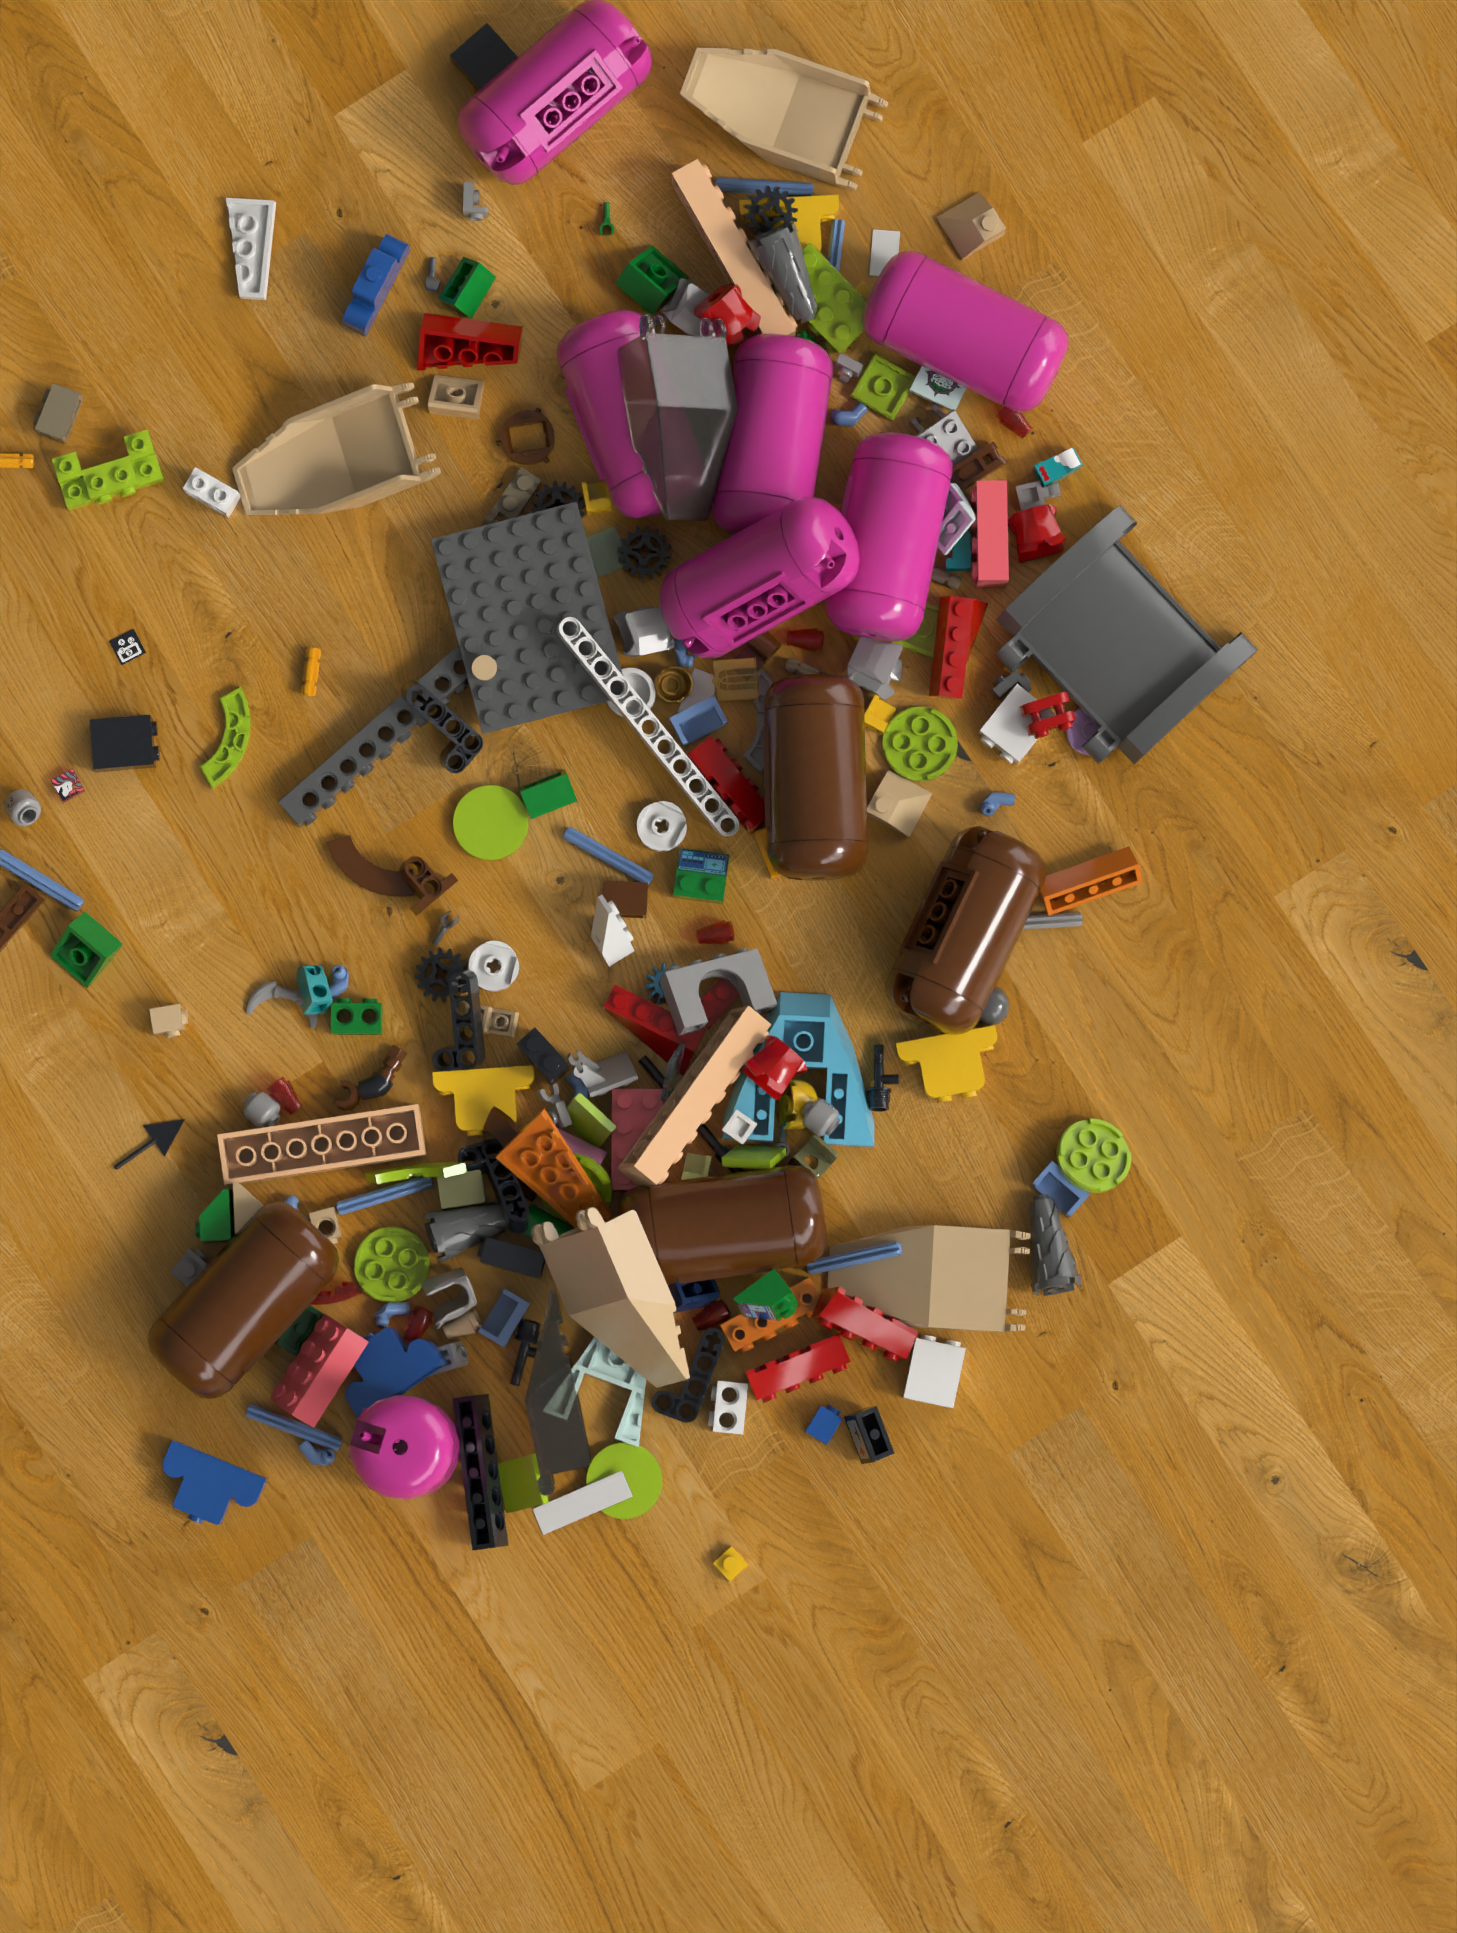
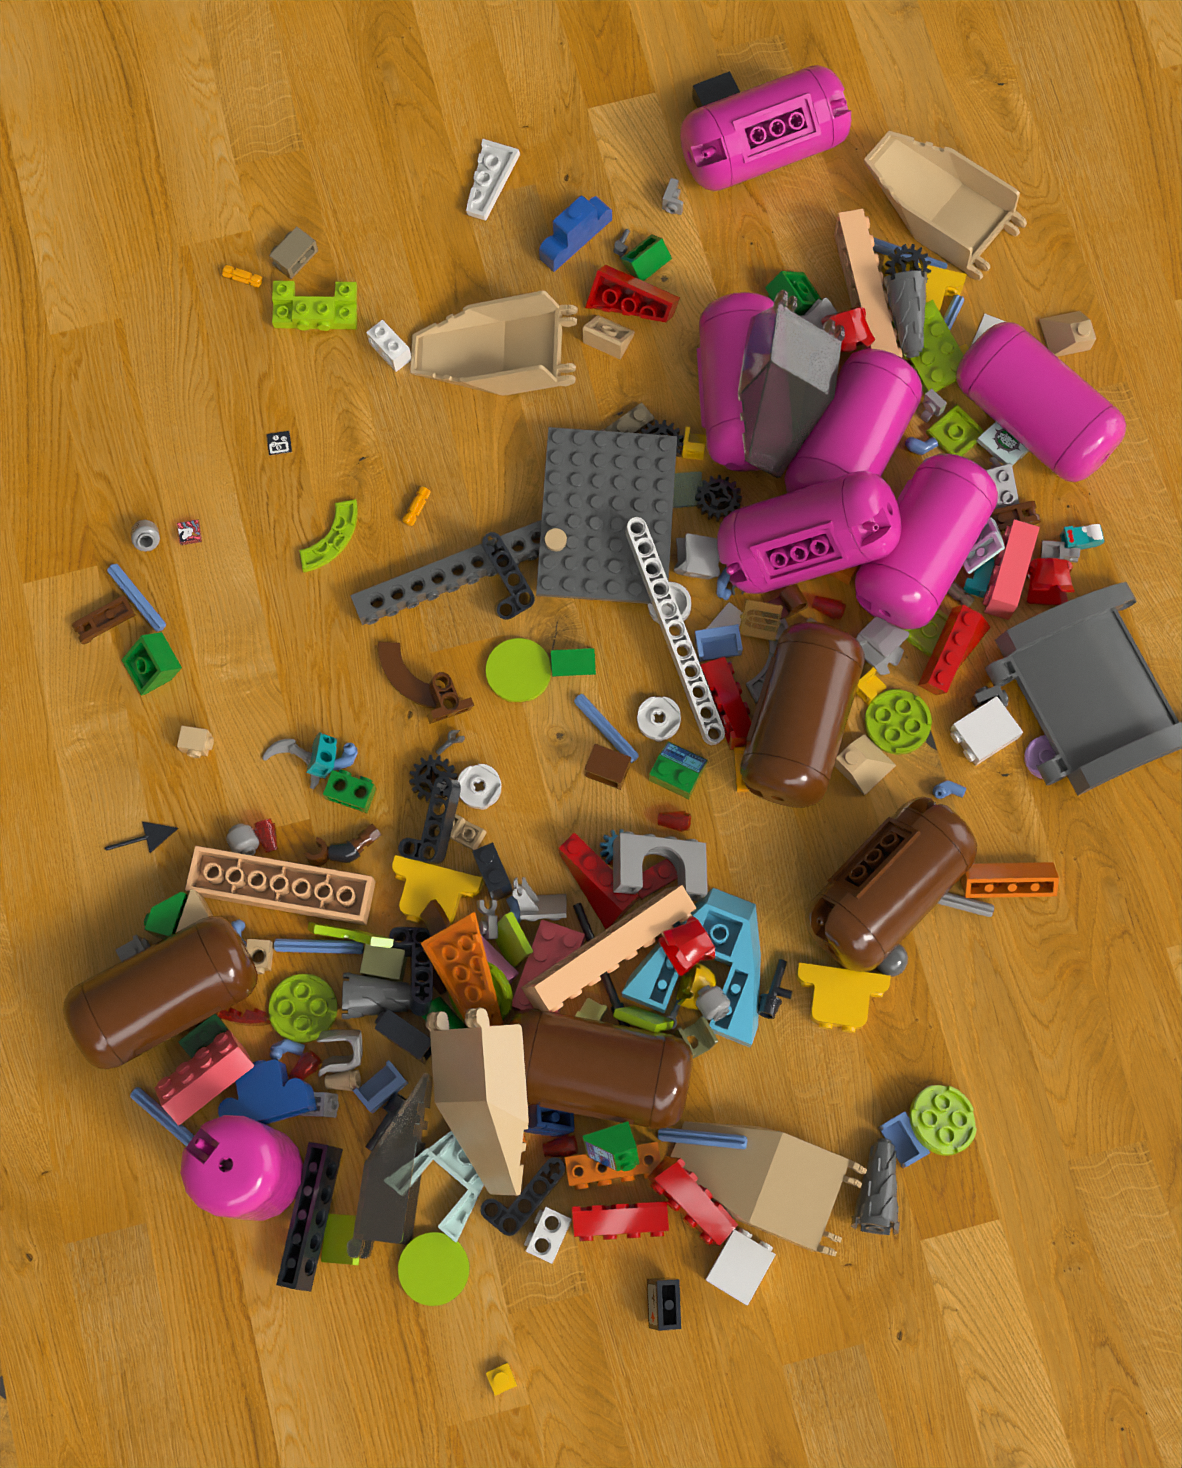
camera: 25 degrees right, 10 degrees down
(124, 743) = (245, 512): black brick -> none
(209, 1483) = (75, 1144): blue brick -> none
(317, 1456) = (174, 1151): medium blue arm -> none
(531, 456) = (654, 398): reddish brown piece -> none
(582, 1502) = (390, 1275): white sticker -> none
(606, 220) = (773, 244): green hand -> none
(610, 932) = (583, 787): white slope -> none
(672, 1072) = (597, 921): clear light blue piece -> none
(673, 684) = (707, 606): pearl gold hair -> none
(739, 1127) = (639, 987): white plate -> none
(824, 1423) = (627, 1279): blue brick -> none
(1014, 421) = (1056, 489): clear red cone -> none
(1040, 727) = (1008, 736): red brick -> none

